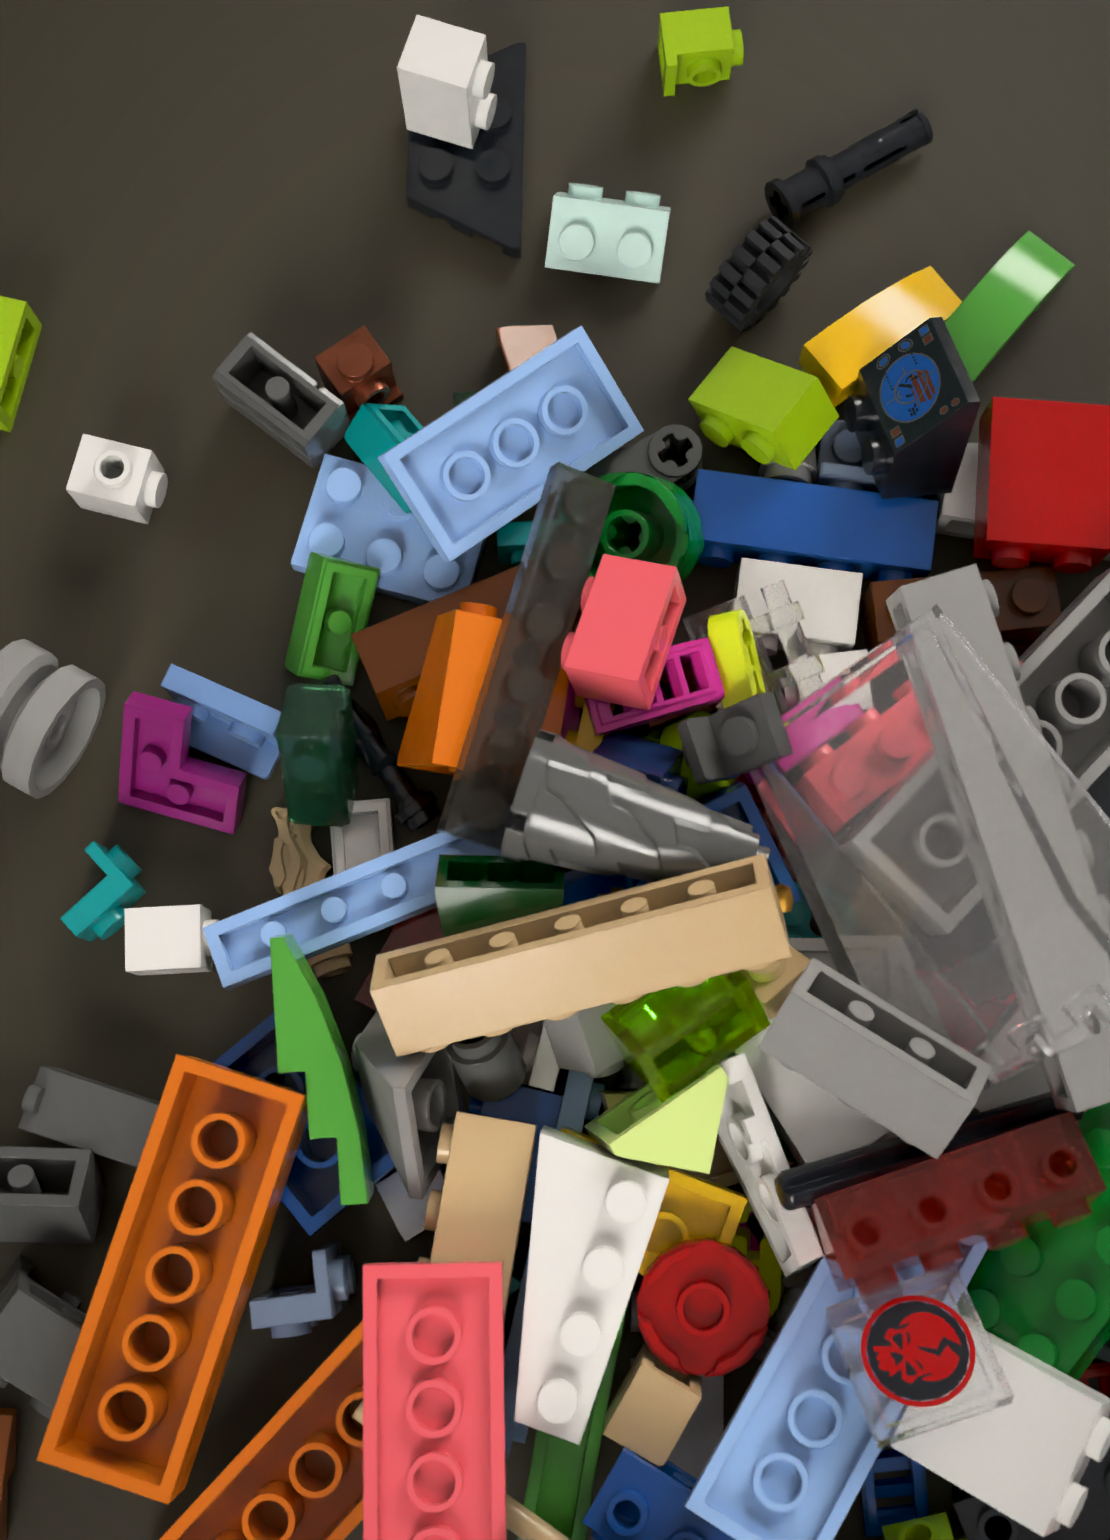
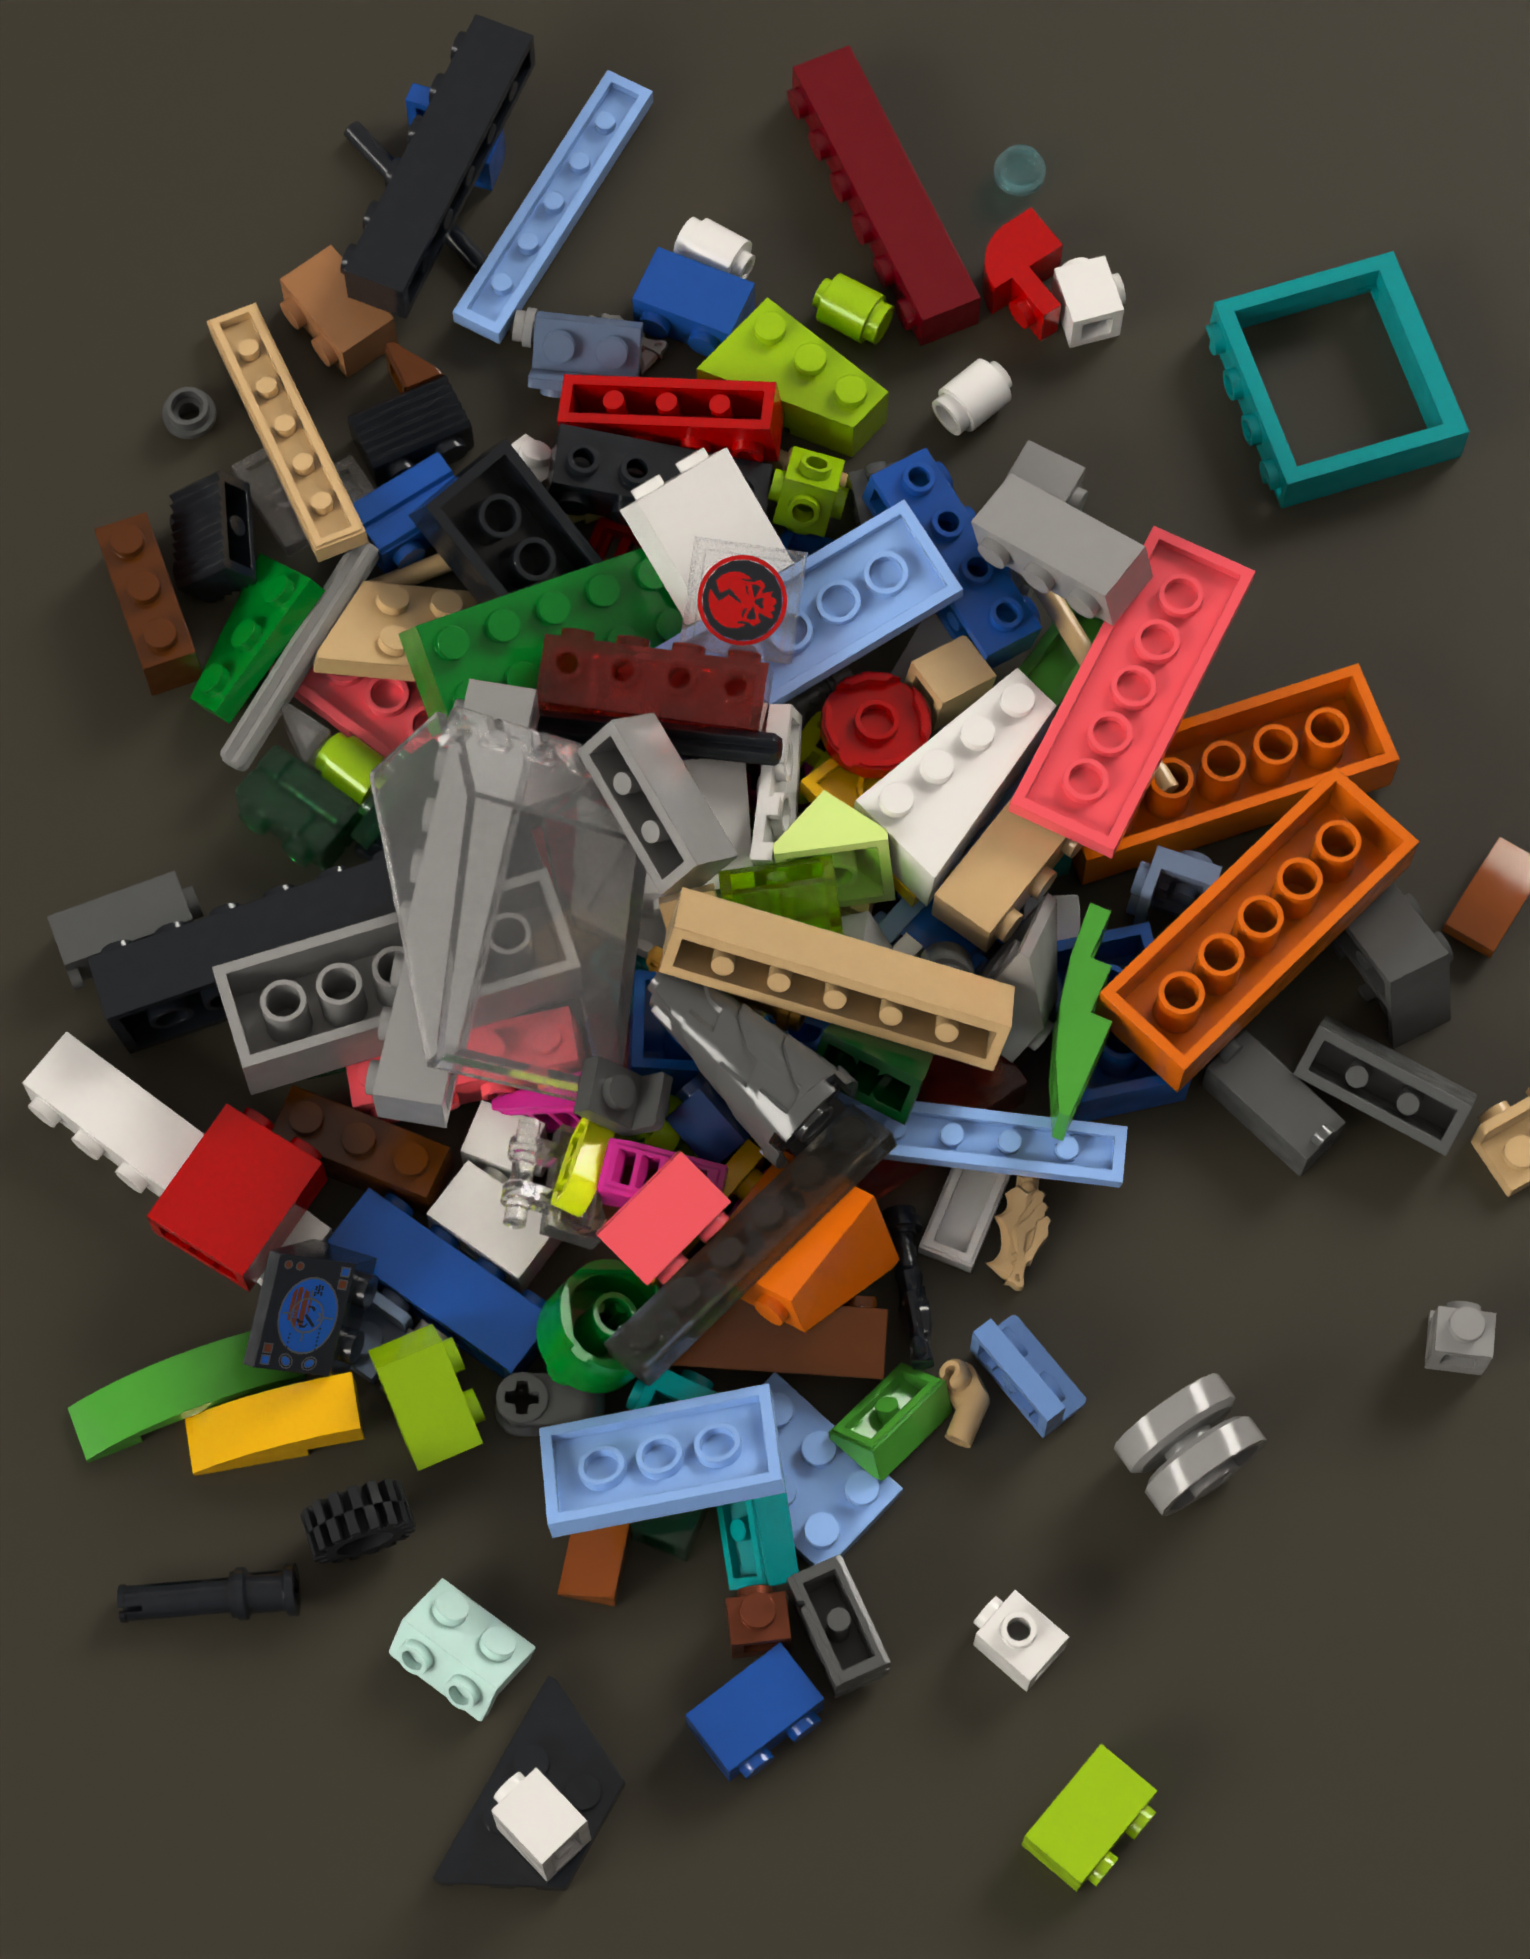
camera: 155 degrees left, 10 degrees down
(102, 909) = (1198, 1273): teal bracket -> none
(161, 775) = (1096, 1355): magenta plate -> none
(167, 940) = (1155, 1218): white brick -> none
(266, 674) = (968, 1399): none -> tan arm
(318, 754) = (960, 1286): clear green brick -> none
(321, 298) = (756, 1714): none -> blue brick
(697, 47) = (280, 1780): lime brick -> none

